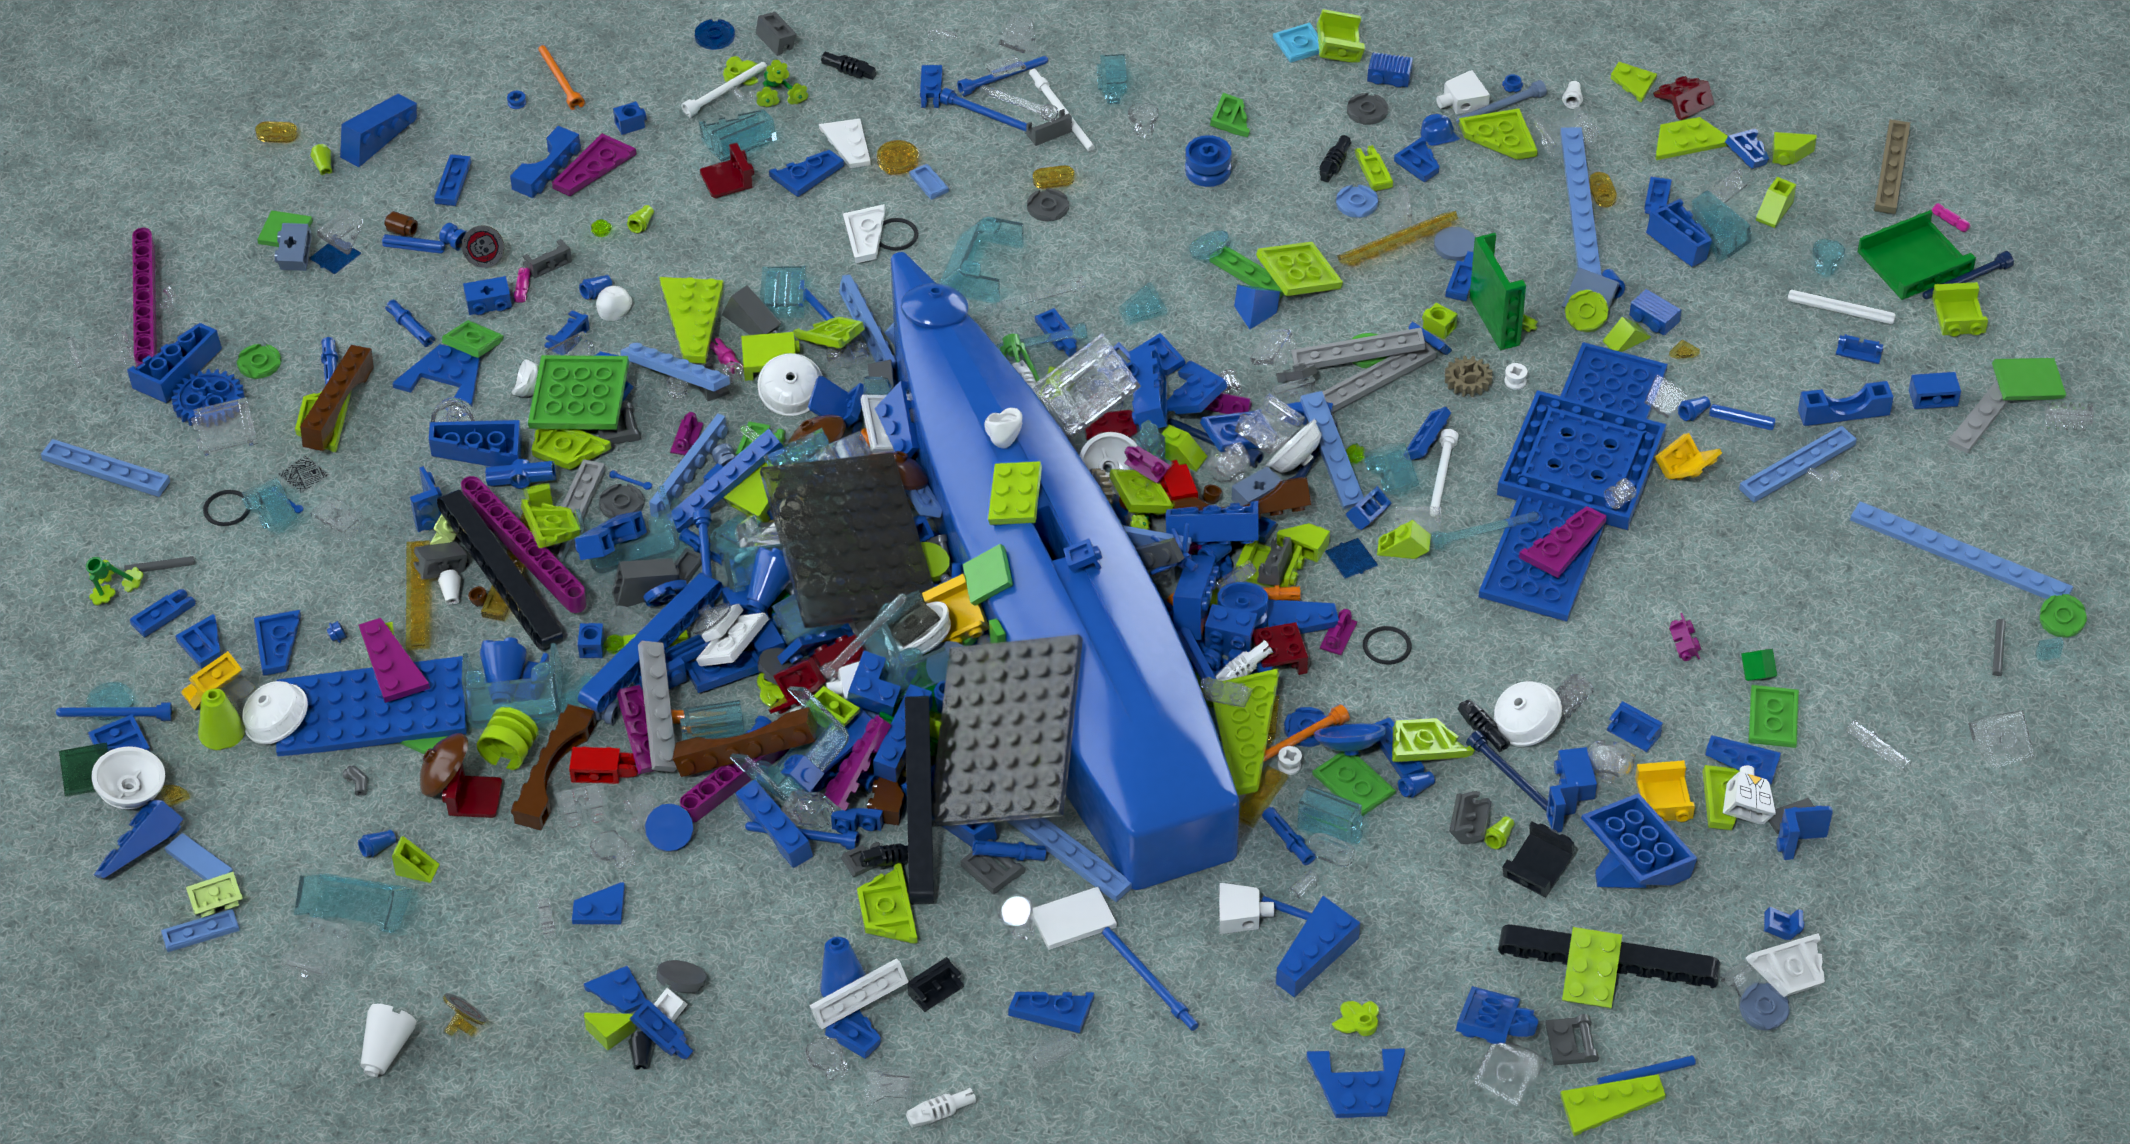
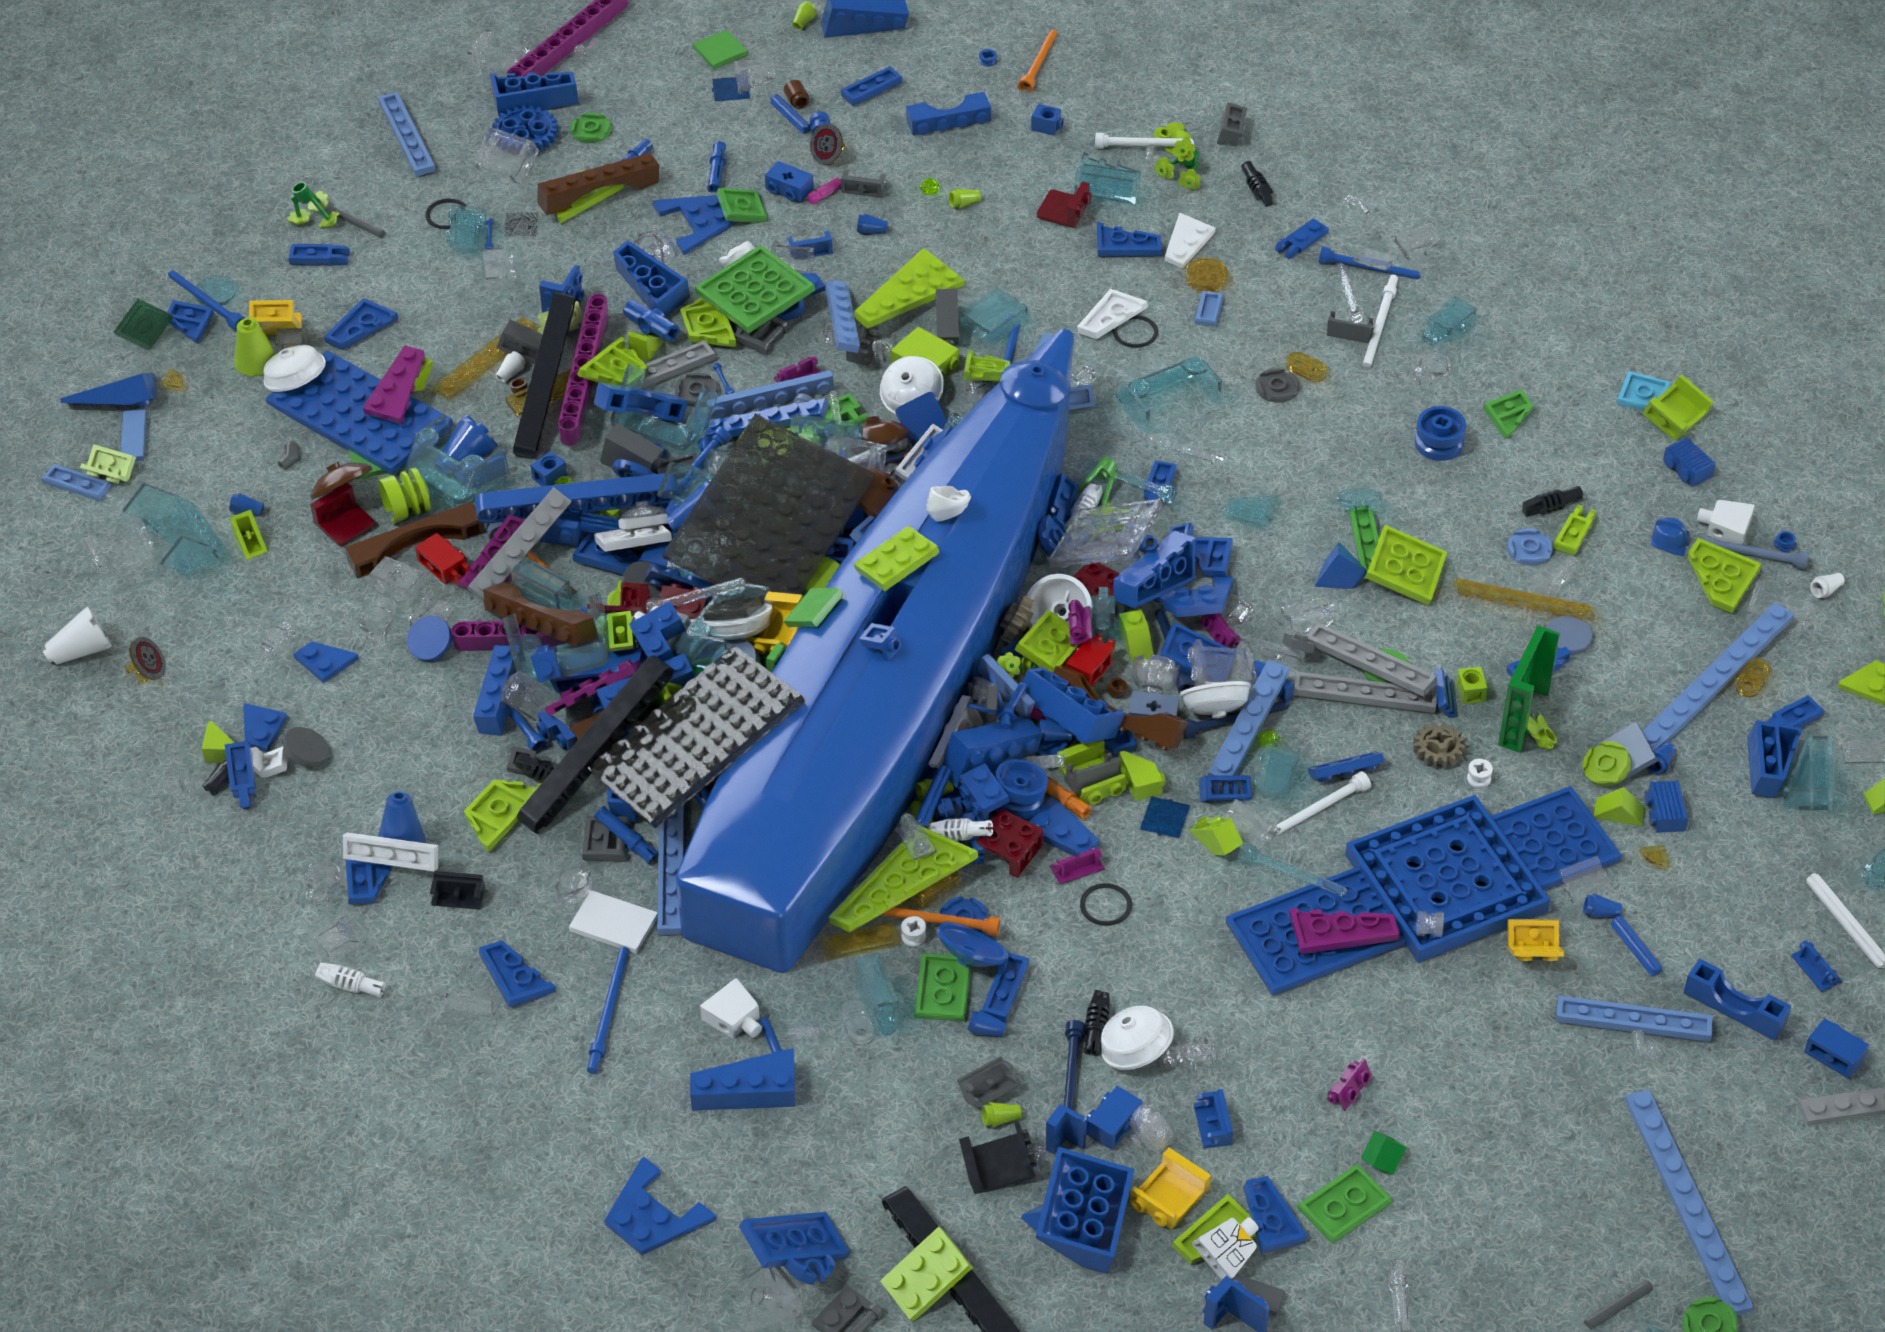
camera: 45 degrees right, 0 degrees up
(128, 769) = (150, 339): white hat -> none
(201, 641) = (316, 291): blue wing -> none
(294, 246) = (704, 62): sand blue brick -> none
(336, 632) = (401, 341): blue plate -> none
(595, 161) = (981, 136): magenta wing -> none
(613, 303) = (868, 244): white hair -> none
(714, 34) = (1195, 99): clear blue tile -> none
(724, 354) = (898, 332): dark pink pin -> none
(950, 97) = (1304, 255): blue piece -> none
(1294, 842) = (838, 994): blue pin -> none
(1357, 1018) = (714, 1164): lime plate -> none
(1373, 110) = (1633, 487): dark grey tile -> none
(1418, 160) = (1622, 548): blue wing -> none
(1425, 741) = (1029, 997): lime wing -> none

